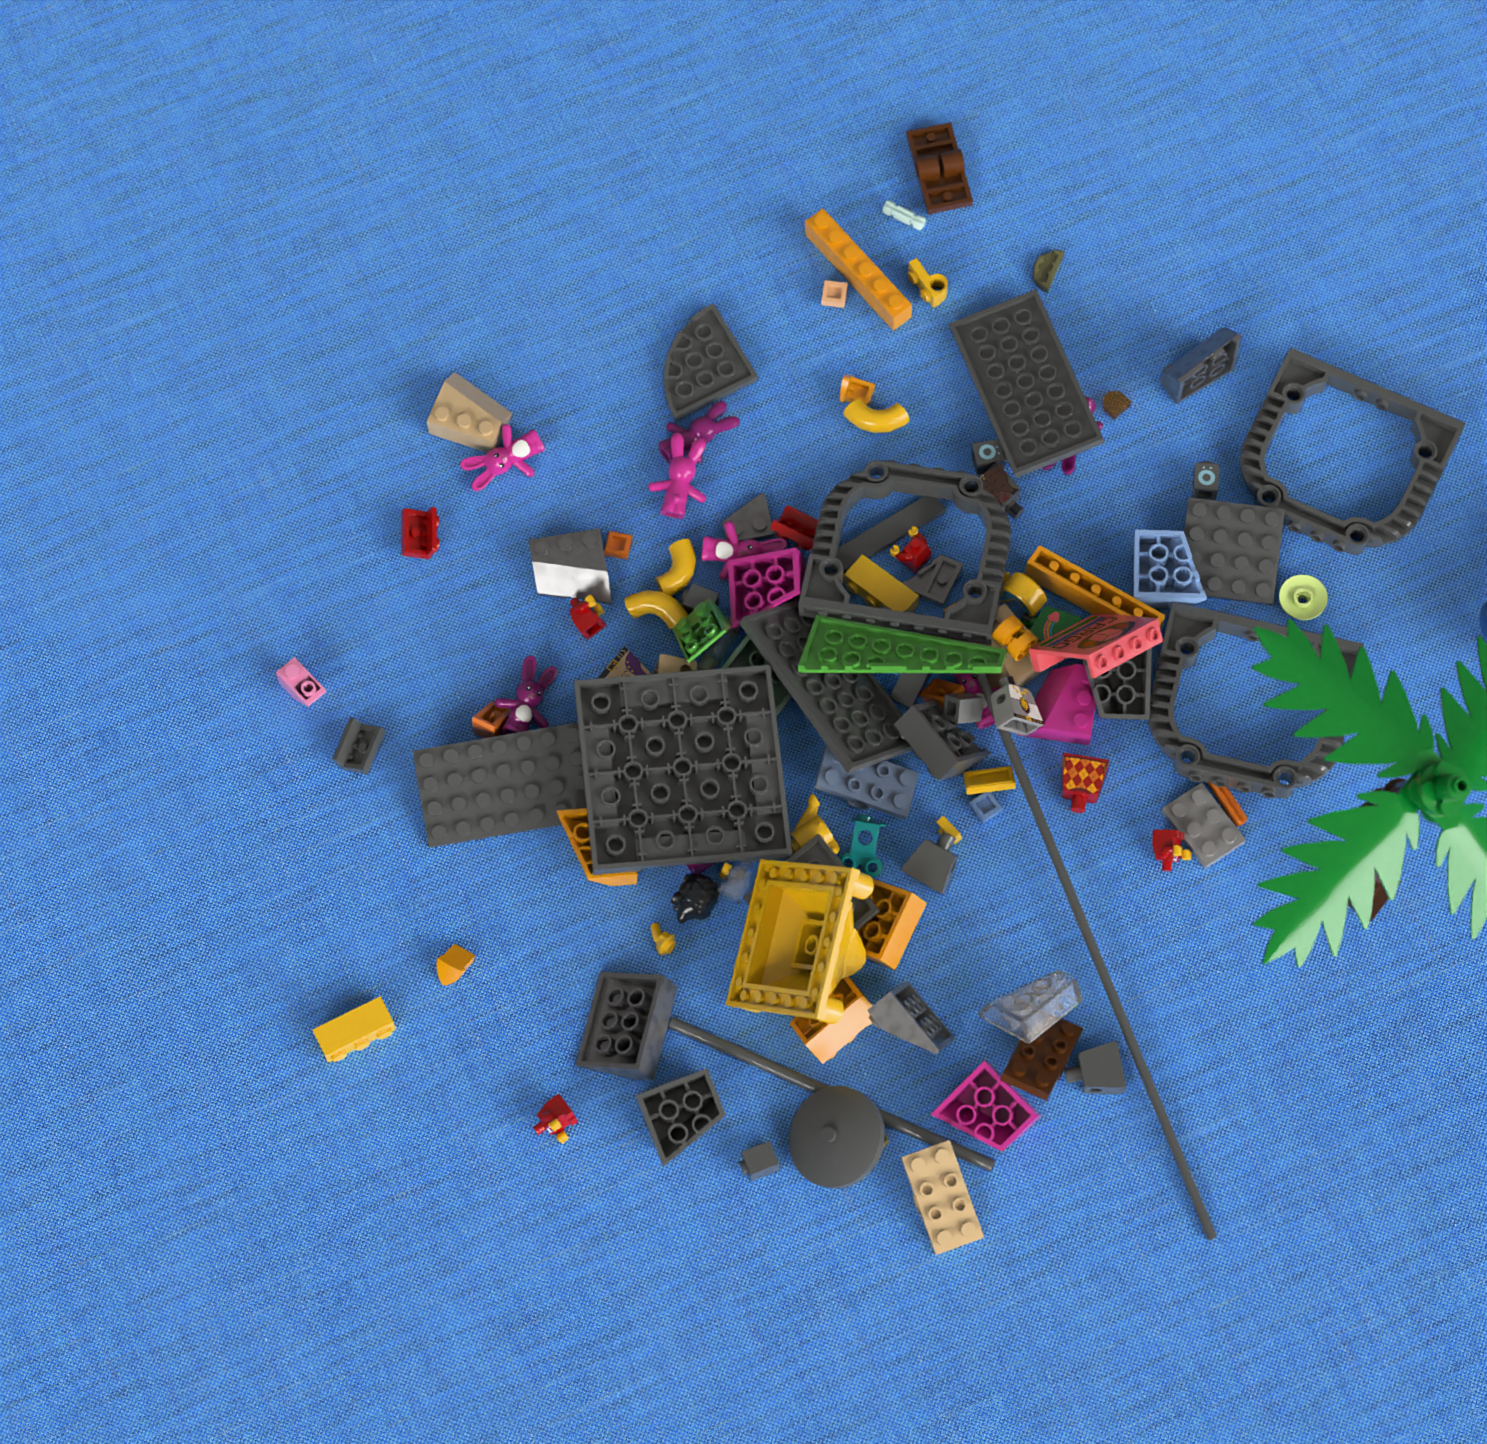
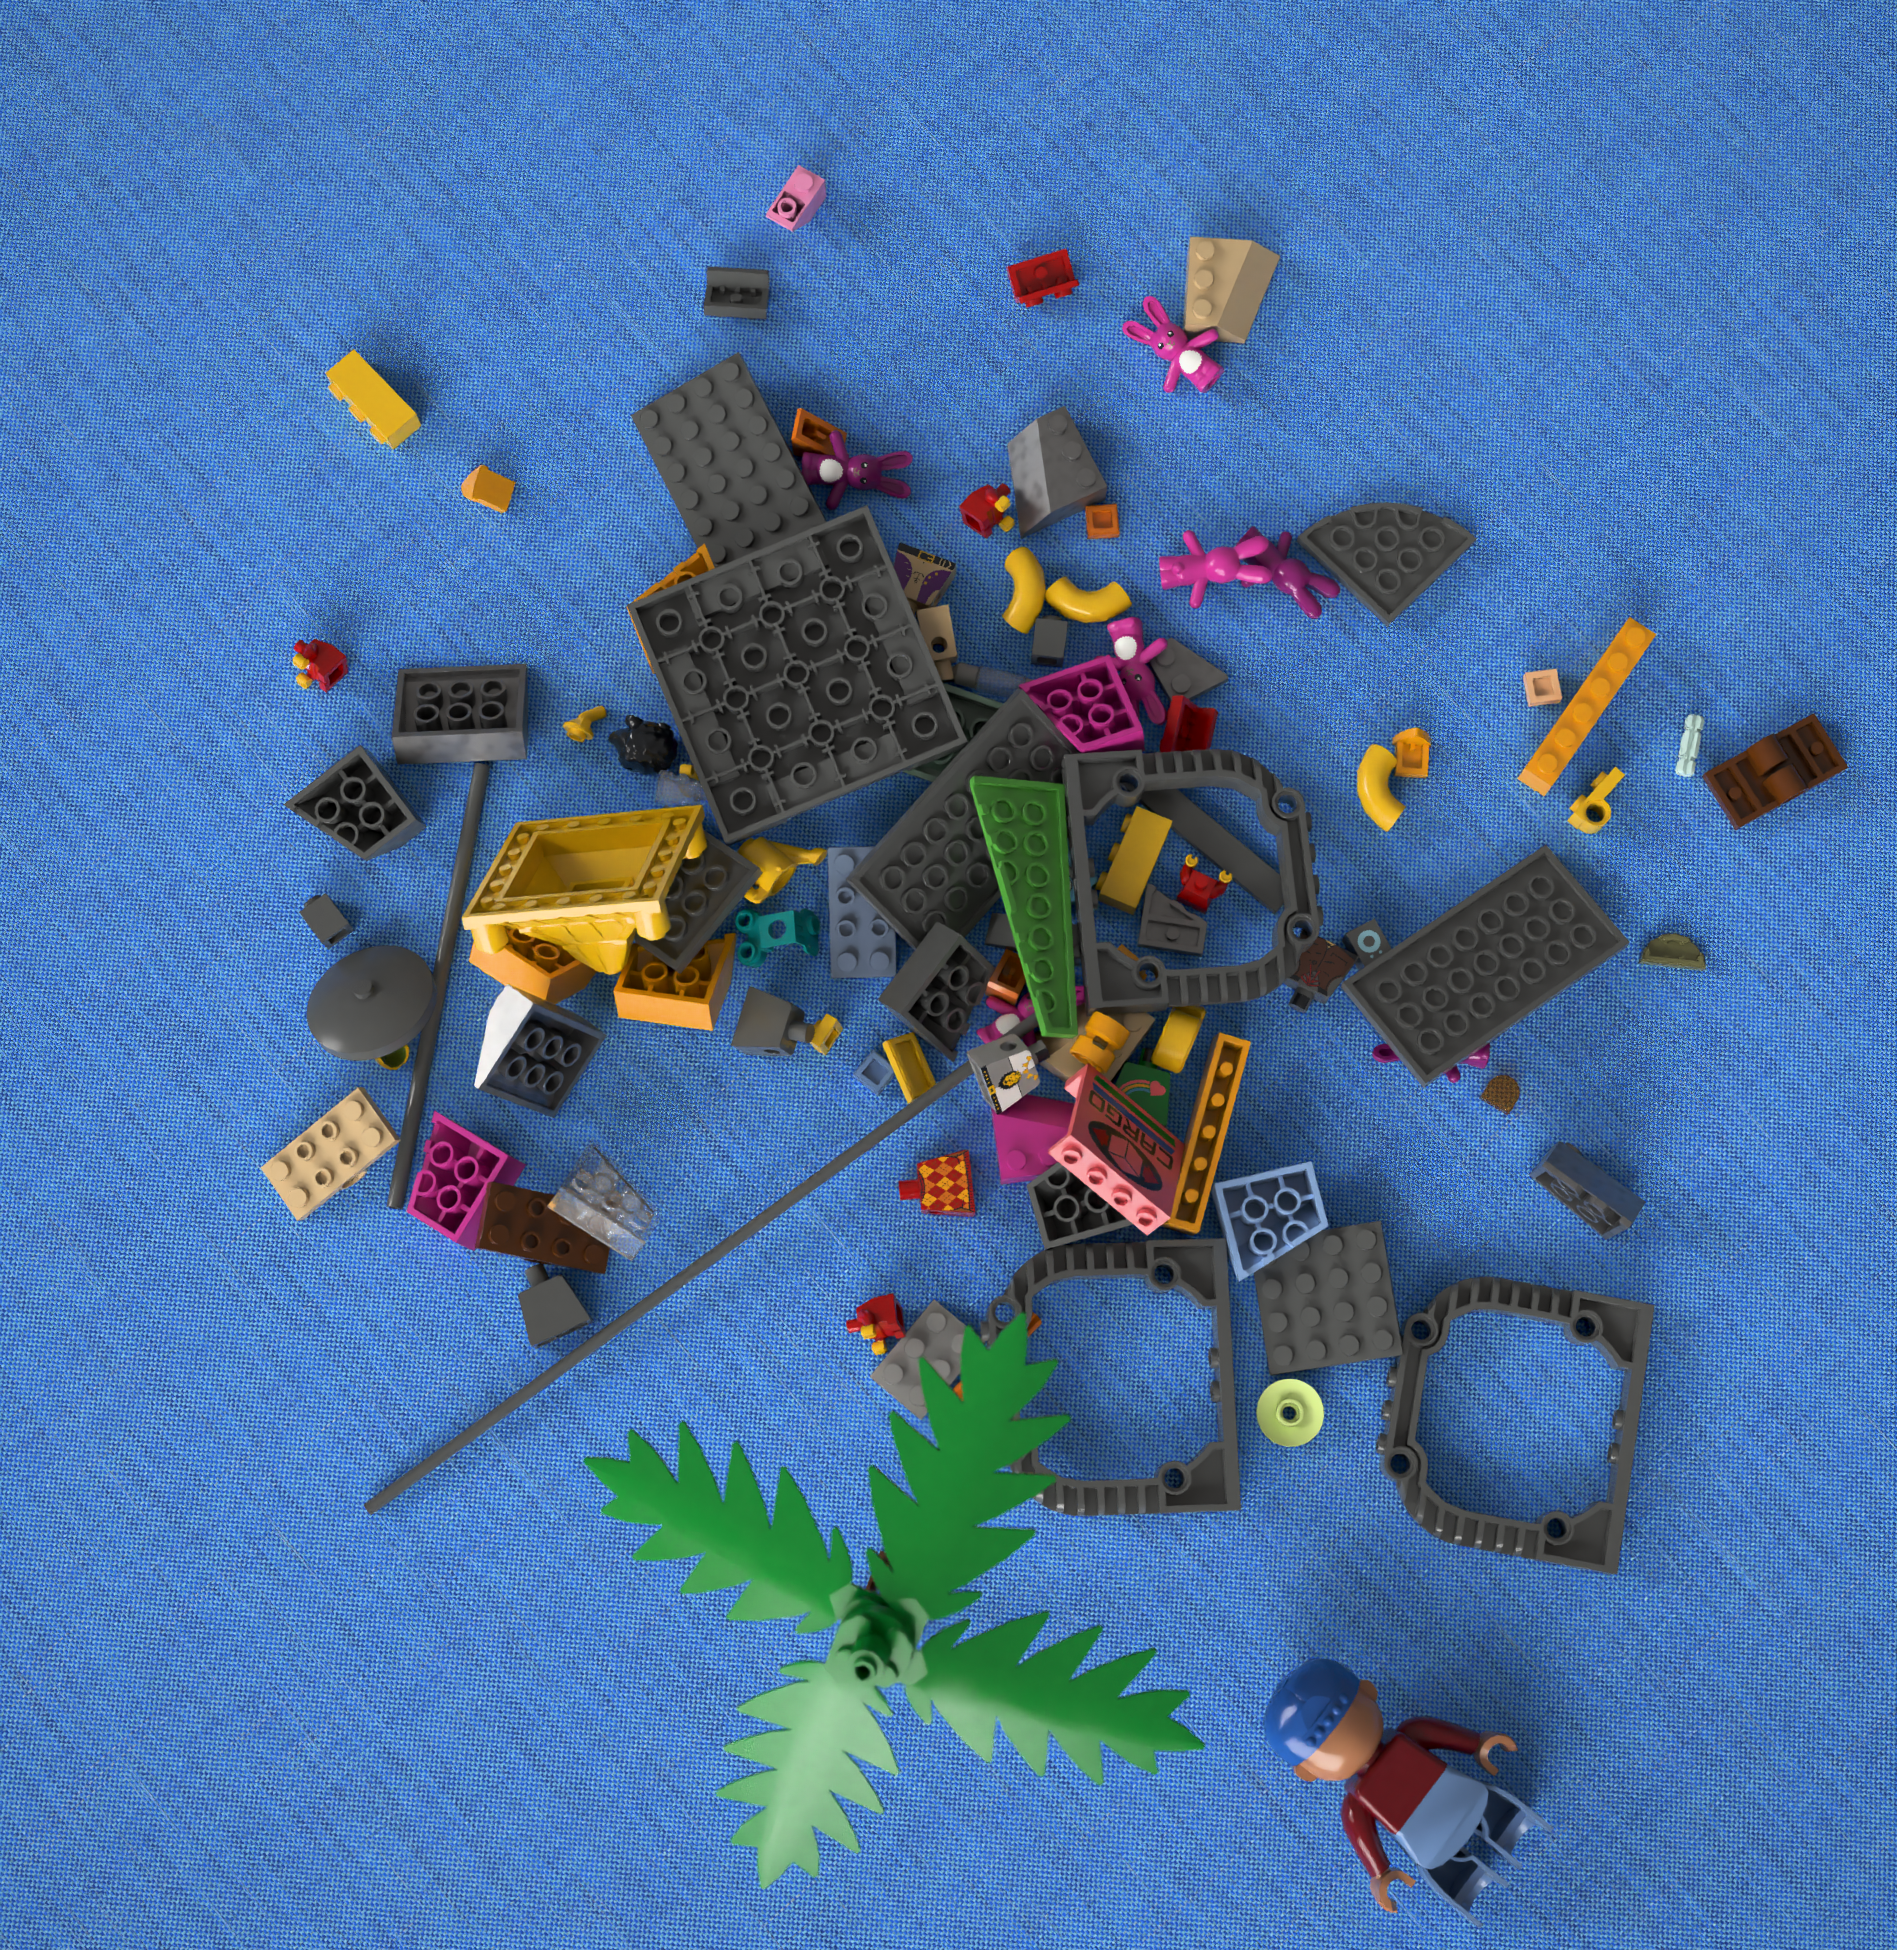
camera: 70 degrees right, 10 degrees up
(700, 629) = (998, 648): bright green slope -> none
(963, 707) = (986, 1003): dark grey brick -> none
(1205, 480) = (1422, 1240): dark grey brick -> none

